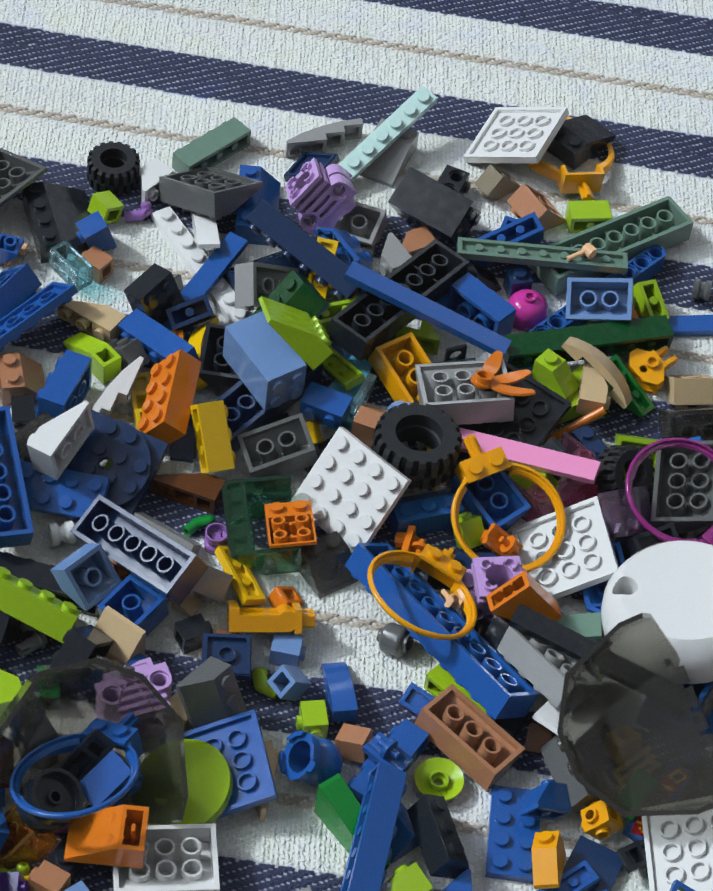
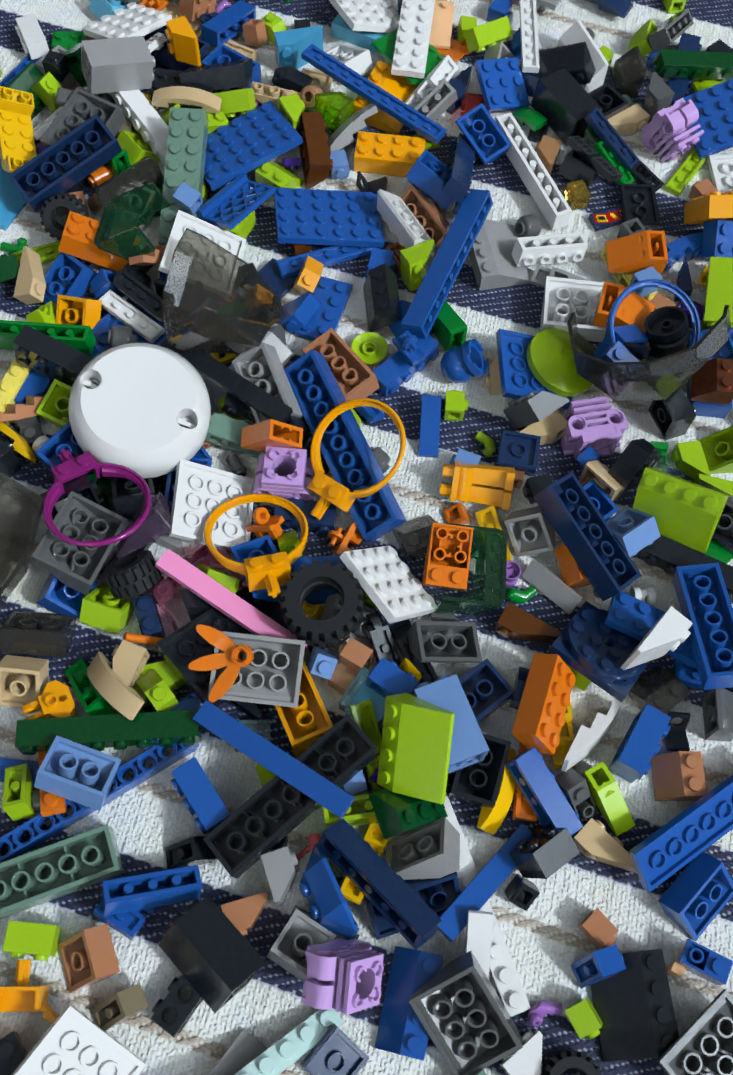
camera: 165 degrees left, 15 degrees up
(71, 265) = (628, 922): clear light blue brick -> none
(191, 312) = (504, 830): dark blue slope -> none
(213, 436) = (506, 656): yellow brick -> none
(289, 682) = (469, 431): medium blue brick -> none
(351, 741) = (427, 378): nougat brick -> none
(451, 600) = (330, 462): light nougat hand -> none
(517, 279) = (148, 841): dark blue brick -> none
(530, 309) = (150, 808): dark pink cylinder -> none
(540, 255) = (116, 849): sand green plate -> none
(587, 250) = (66, 839): light nougat hand -> none

